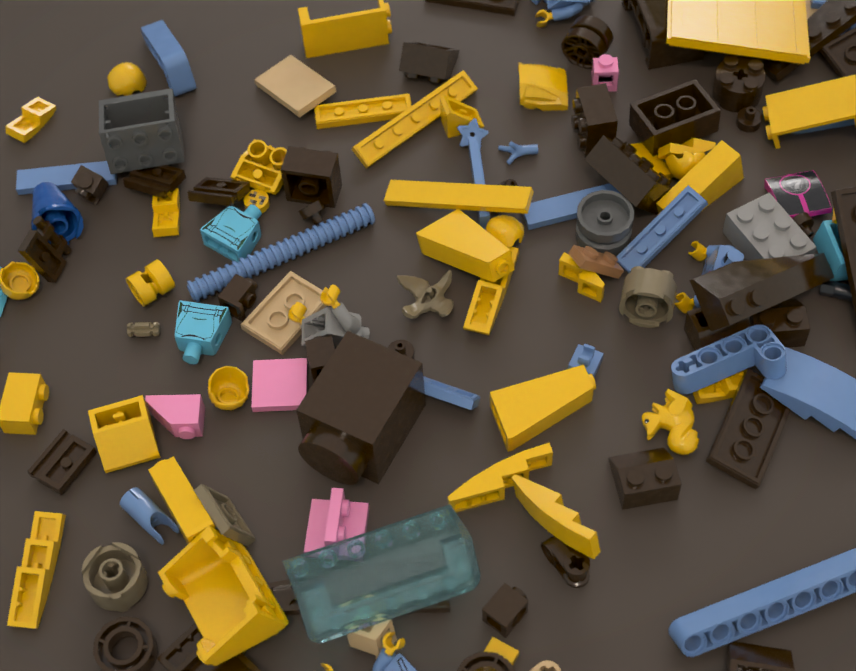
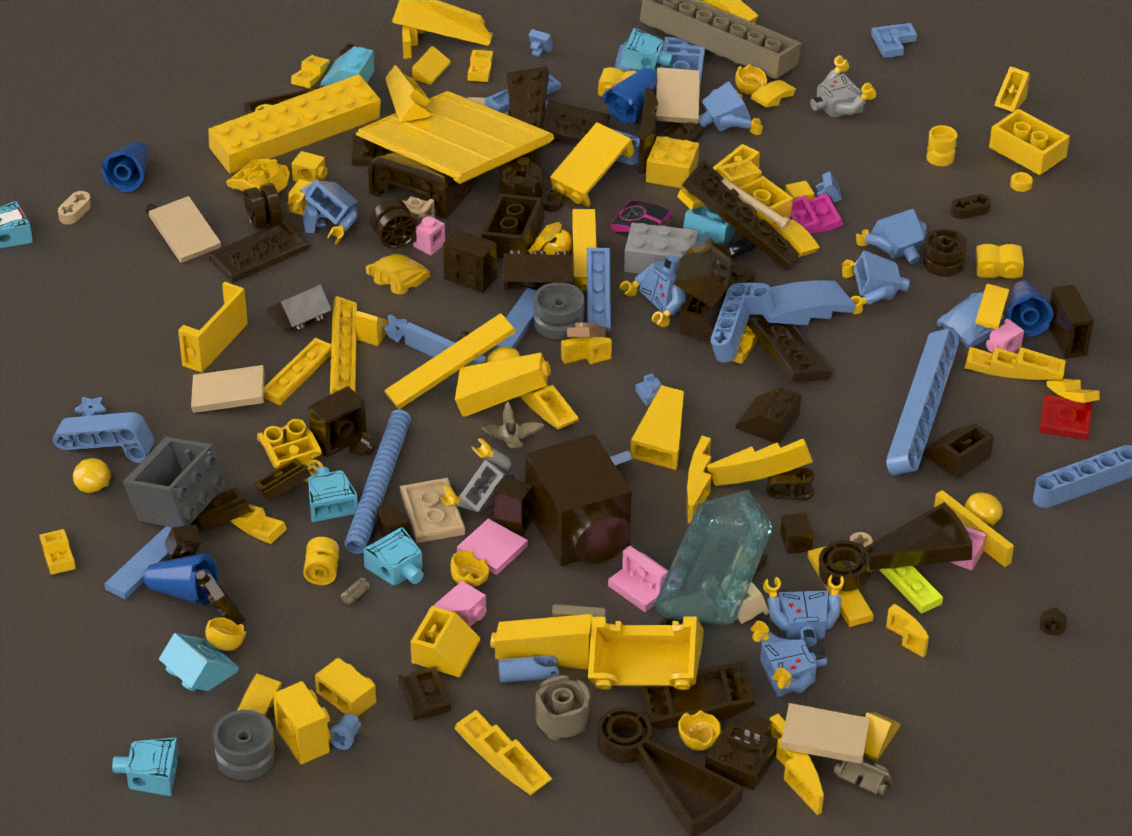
camera: 55 degrees left, 15 degrees down
(195, 28) = (90, 407): none -> medium blue plate
(518, 150) = (438, 317): medium blue bar -> none
(624, 41) = (420, 208): none -> tan brick
(648, 296) = (643, 326): dark tan brick -> none
(676, 418) = (744, 375): yellow animal -> none

